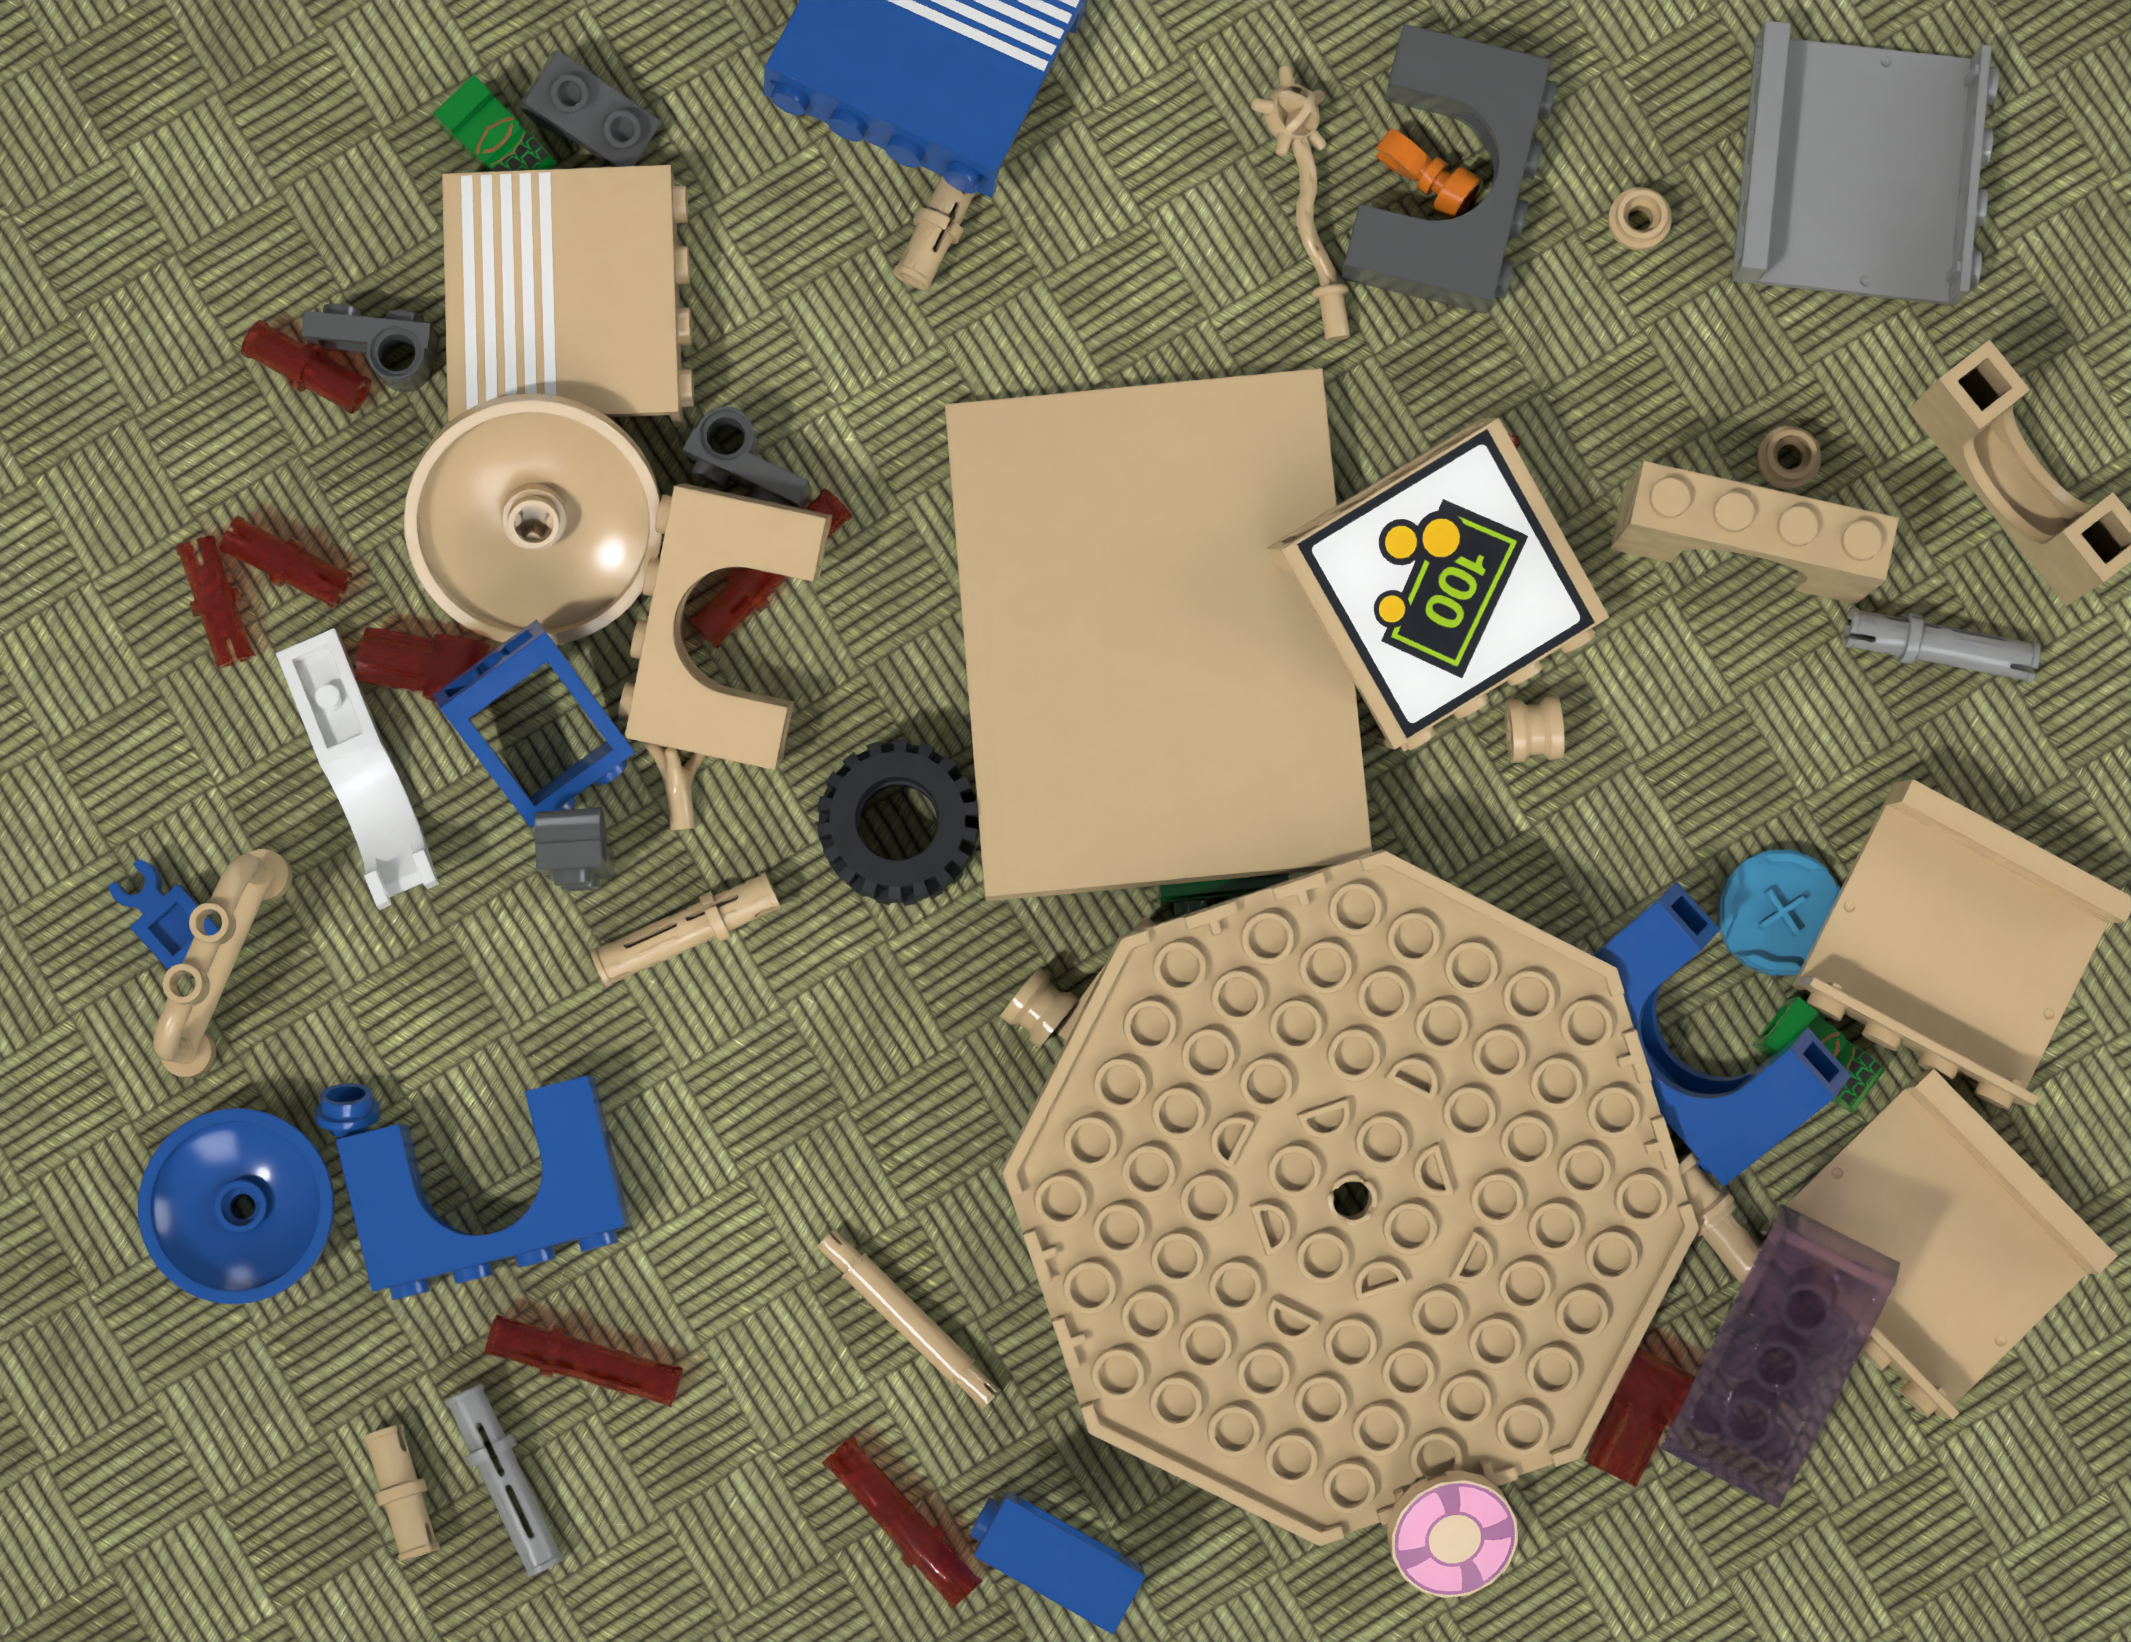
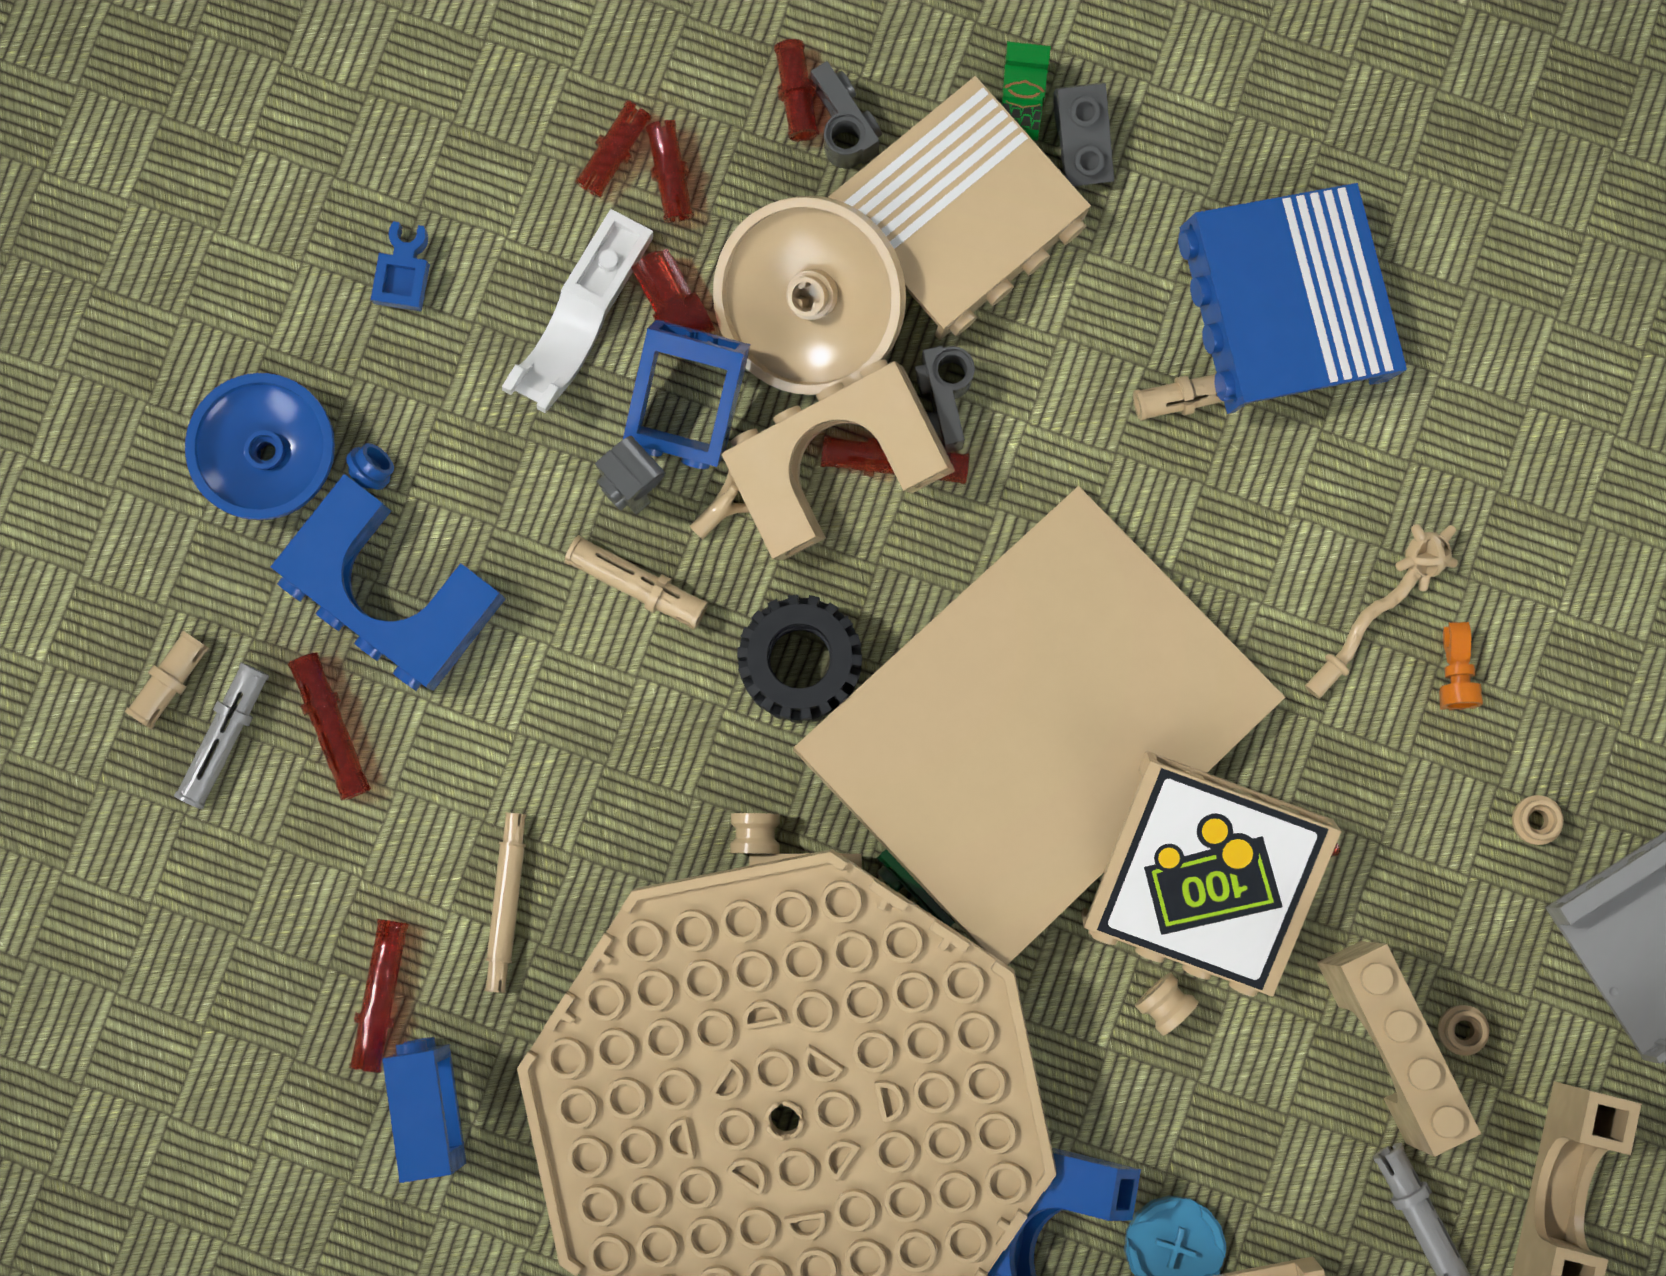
camera: 55 degrees right, 0 degrees up
(182, 1025) = (336, 345): tan bar -> none
(1498, 98) = (1540, 676): dark grey arch -> none

